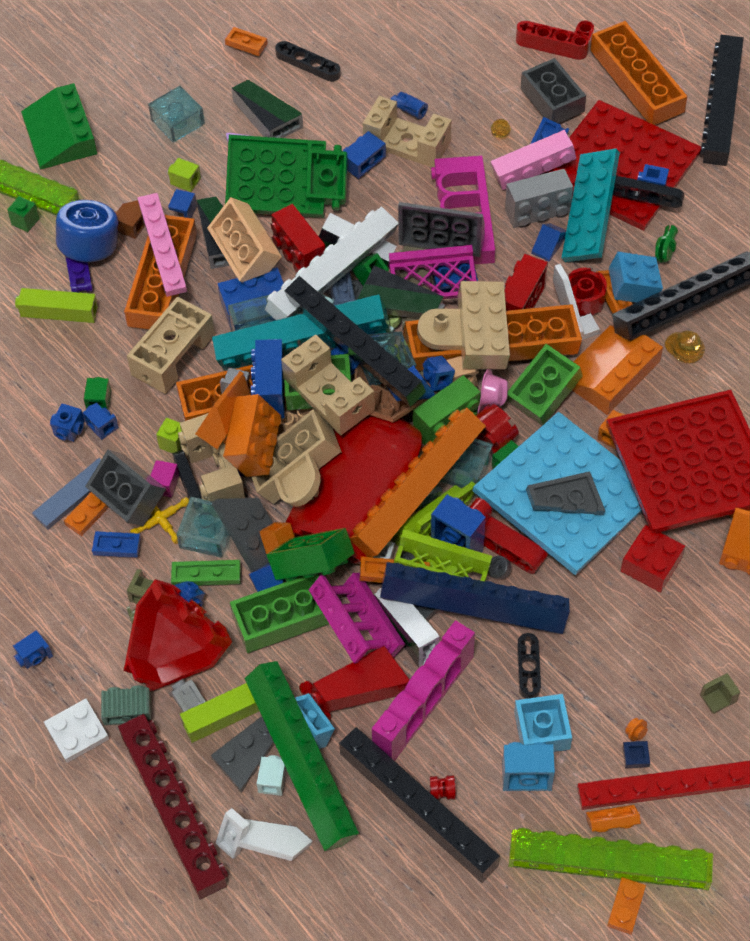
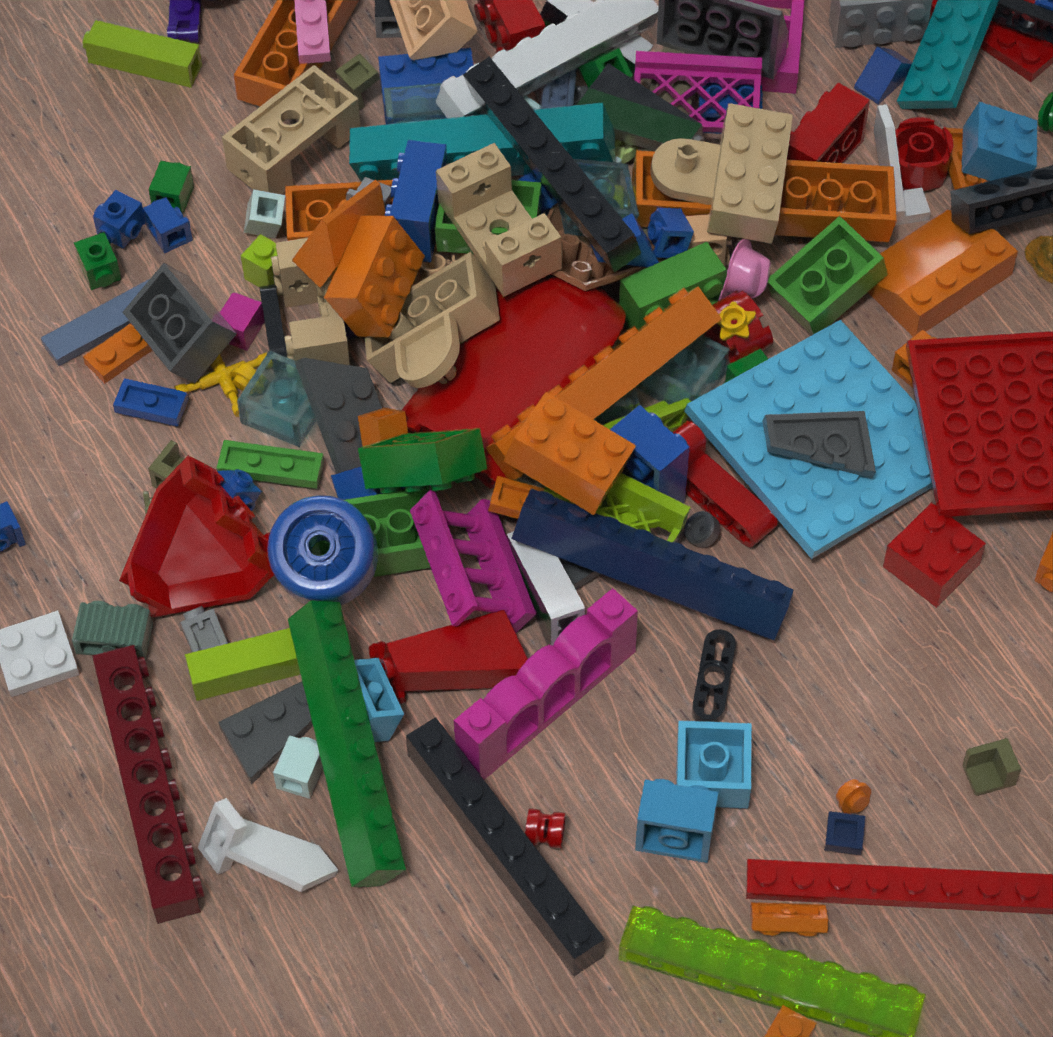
camera: 10 degrees right, 0 degrees up
(59, 453) = (97, 261): none -> green brick
(164, 402) = (264, 213): none -> light aqua brick
(175, 516) = (242, 375): none -> yellow plate
(206, 298) = (357, 76): none -> olive panel
(262, 647) = (335, 575): none -> blue wheel
(409, 535) = (569, 453): none -> orange brick
(493, 420) = (737, 313): none -> yellow plate

